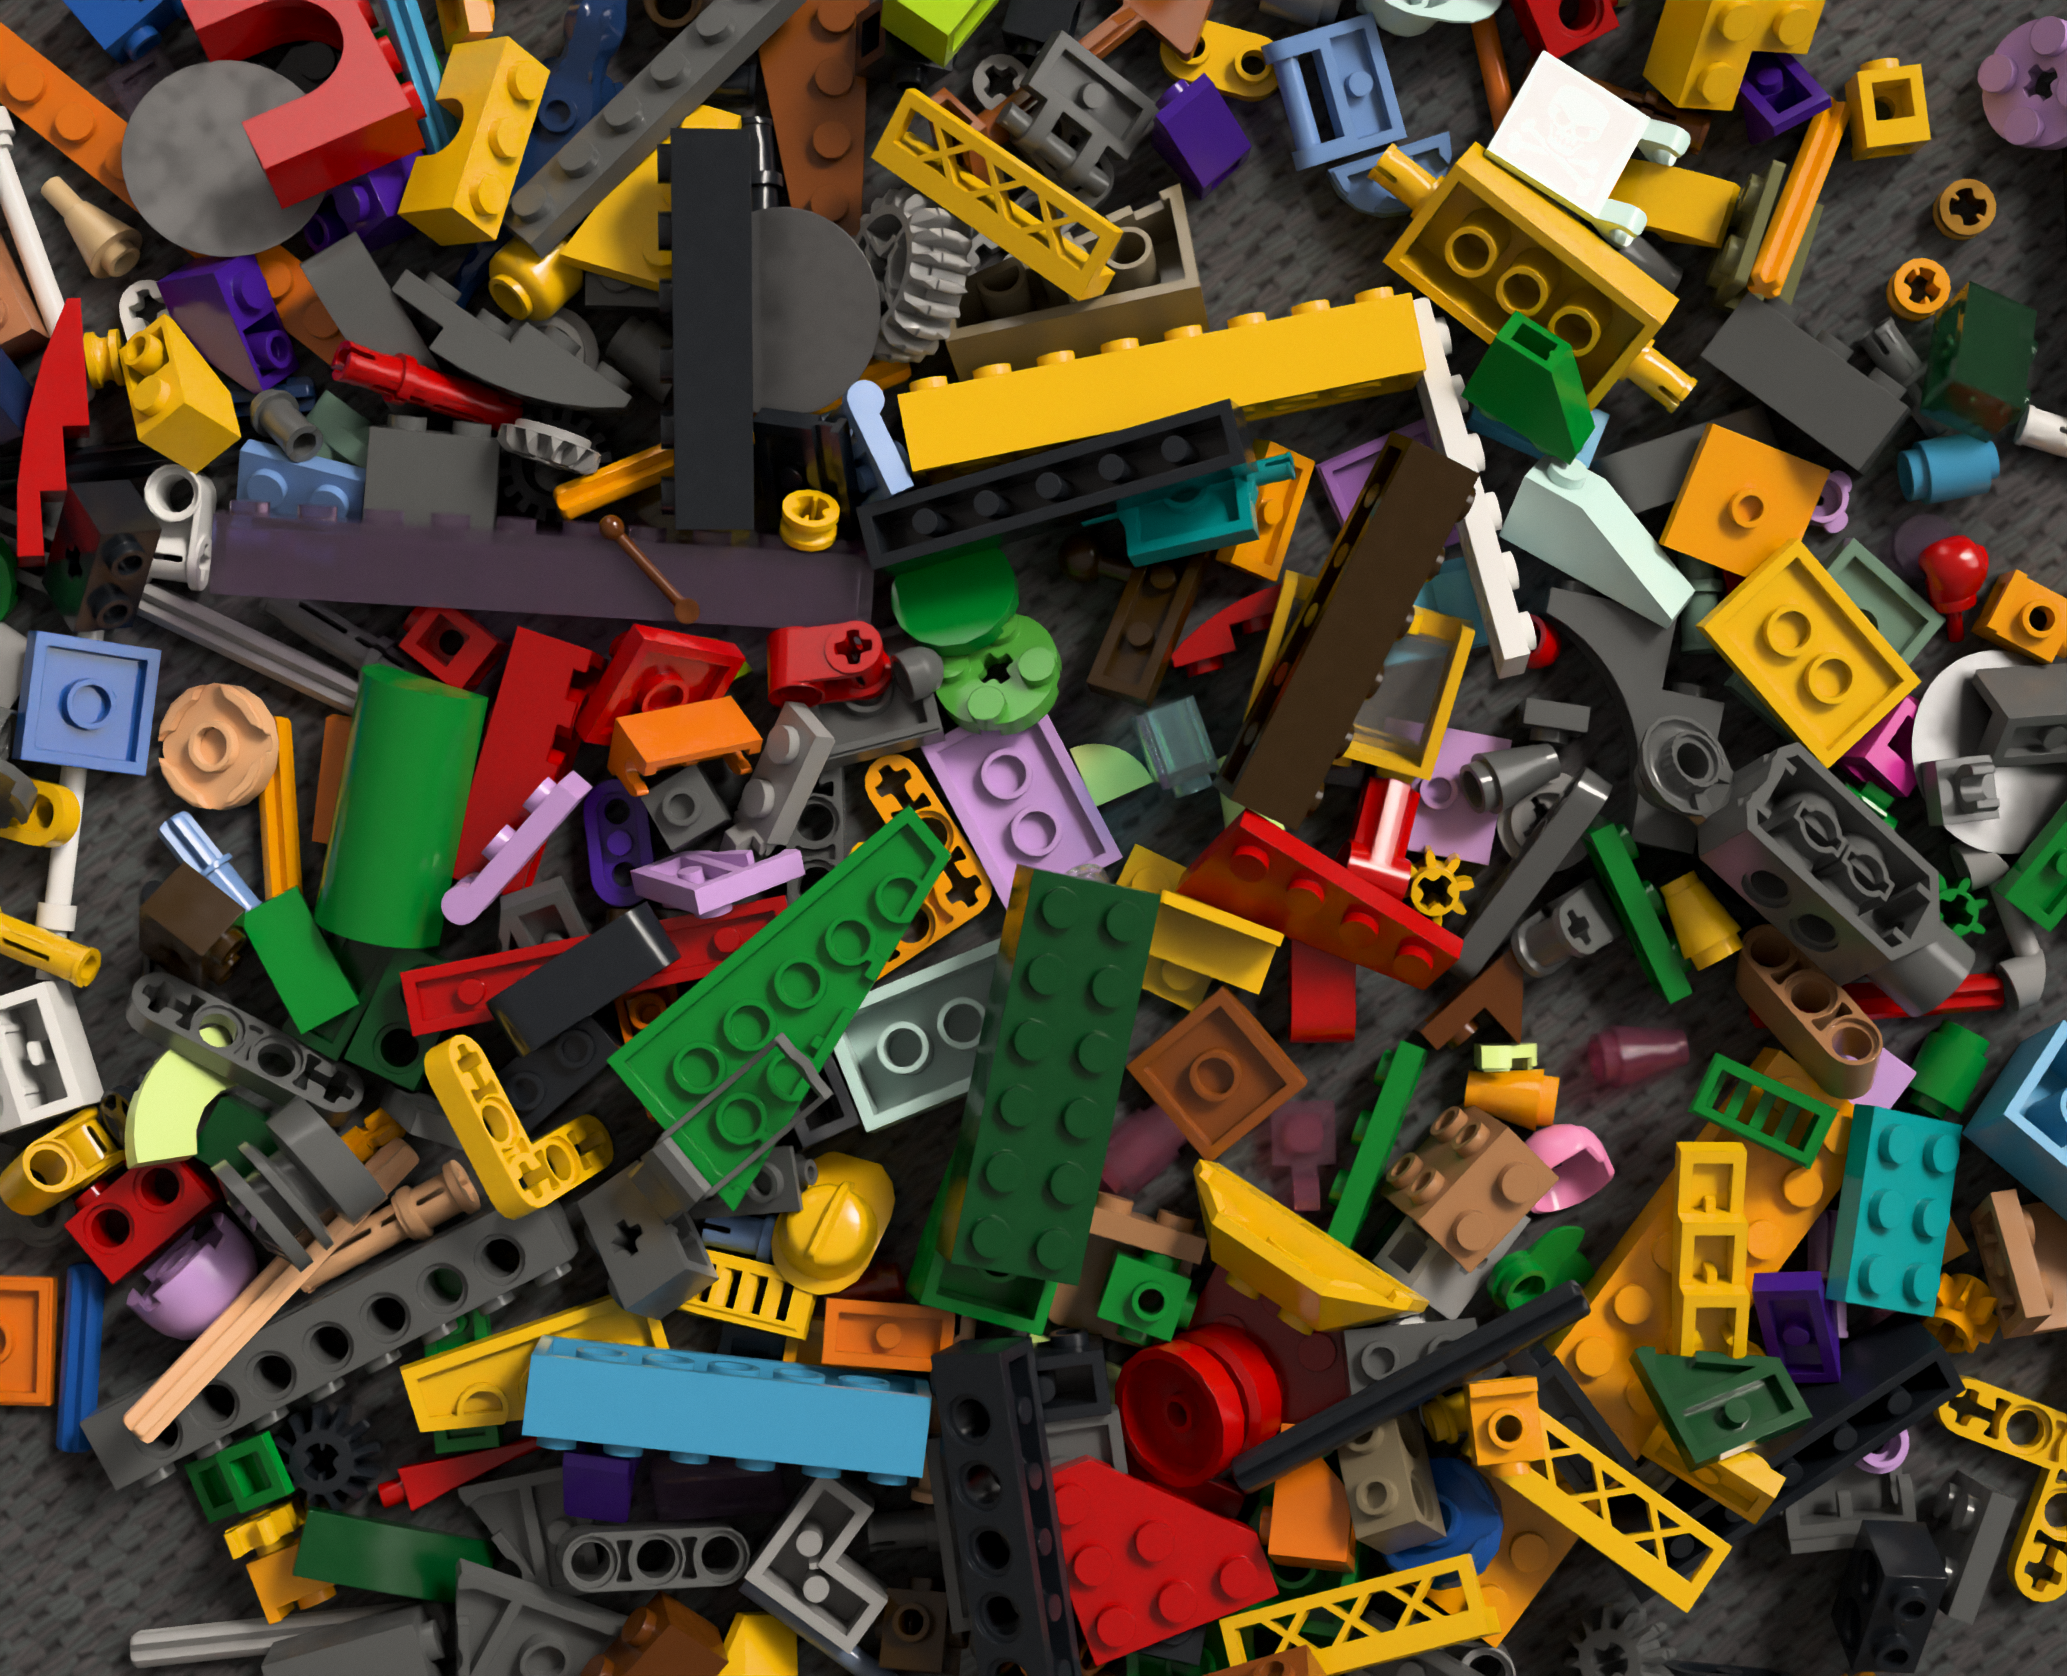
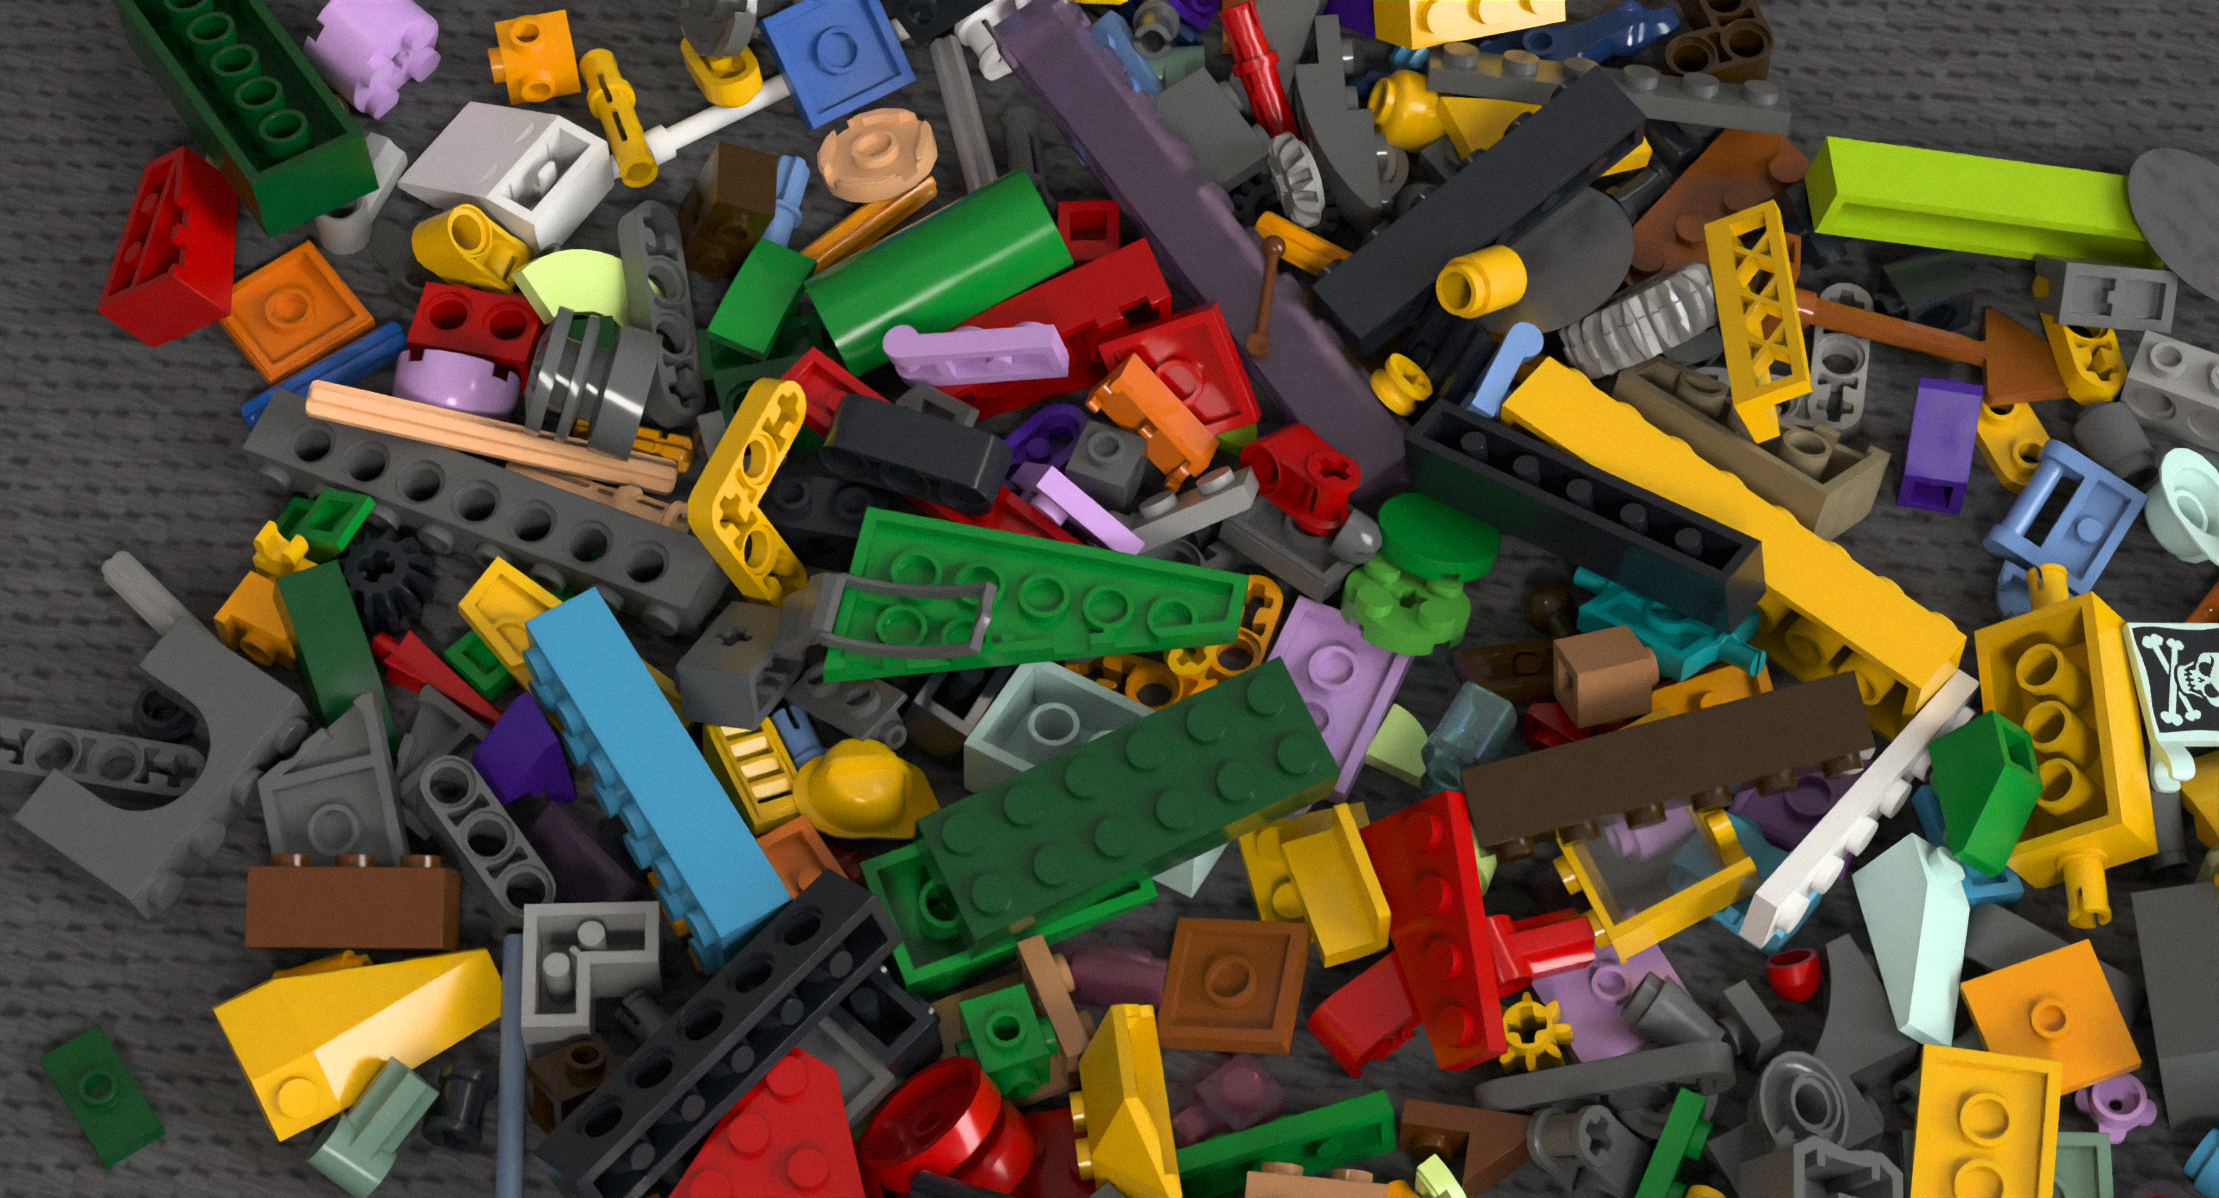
camera: 45 degrees right, 30 degrees down
(786, 391) = (1481, 282): none -> yellow brick
(1089, 98) = (1889, 343): dark grey plate -> none
(1211, 596) = (1604, 676): none -> medium nougat brick

